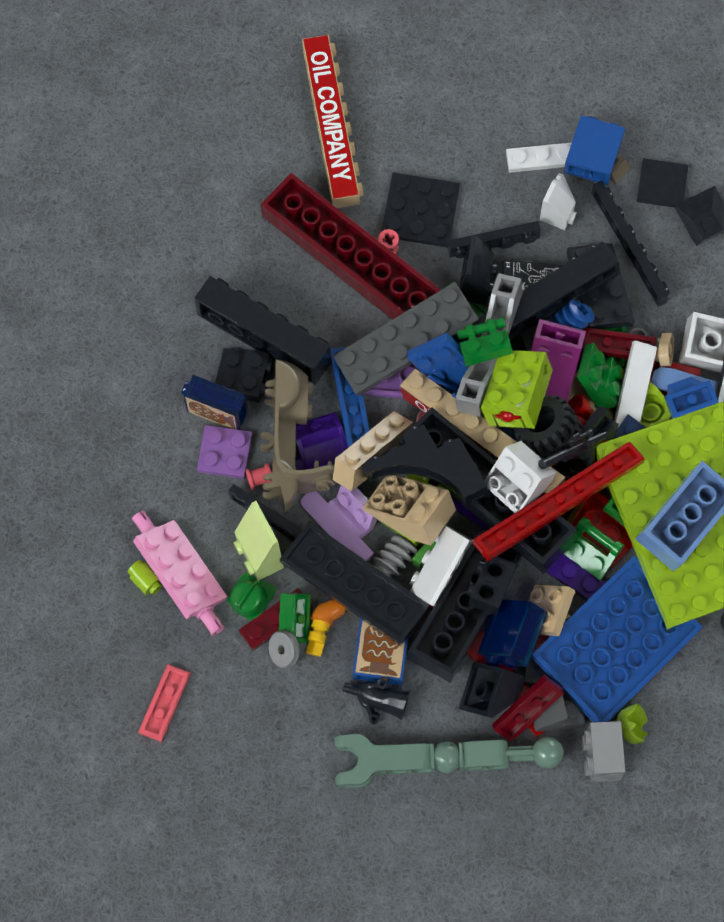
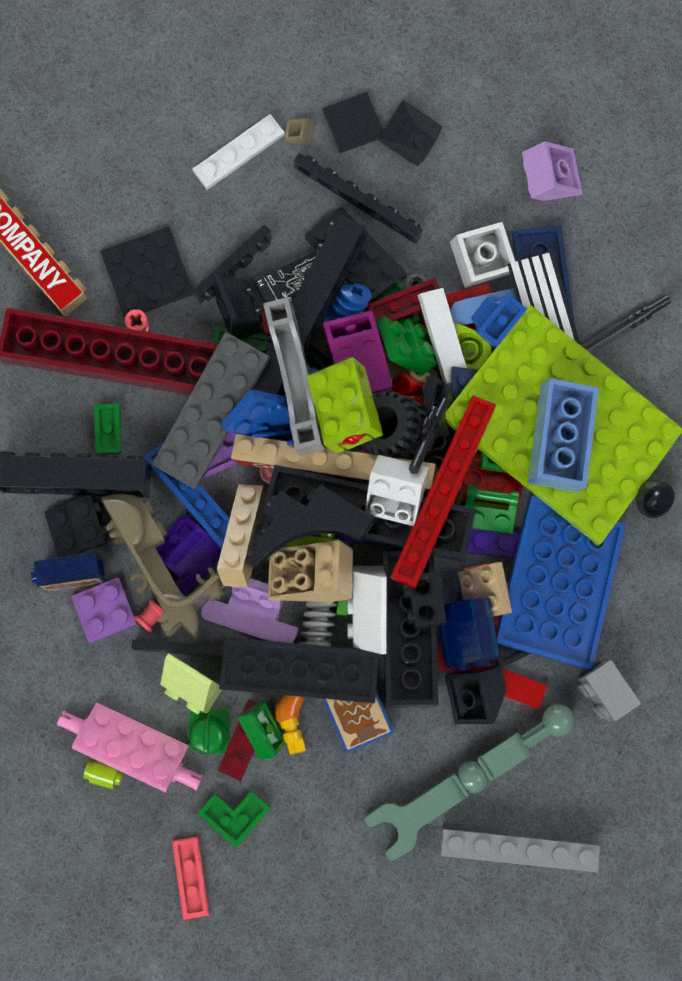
camera: 35 degrees left, 10 degrees up
(228, 681) = (231, 823): none -> green plate
(289, 642) = (278, 766): light grey piece -> none
(315, 311) = (108, 429): none -> green plate
(377, 696) = (380, 757): black piece -> none
(452, 839) = (519, 850): none -> light grey arch
(485, 347) = (294, 382): green plate -> none
(527, 708) = (519, 692): dark red plate -> none
(558, 204) = (273, 196): white slope -> none
(560, 716) = (545, 681): dark grey slope -> none
(594, 149) = (276, 125): blue brick -> none
(632, 721) = (612, 649): lime hair -> none
(665, 349) = (448, 283): tan plate -> none

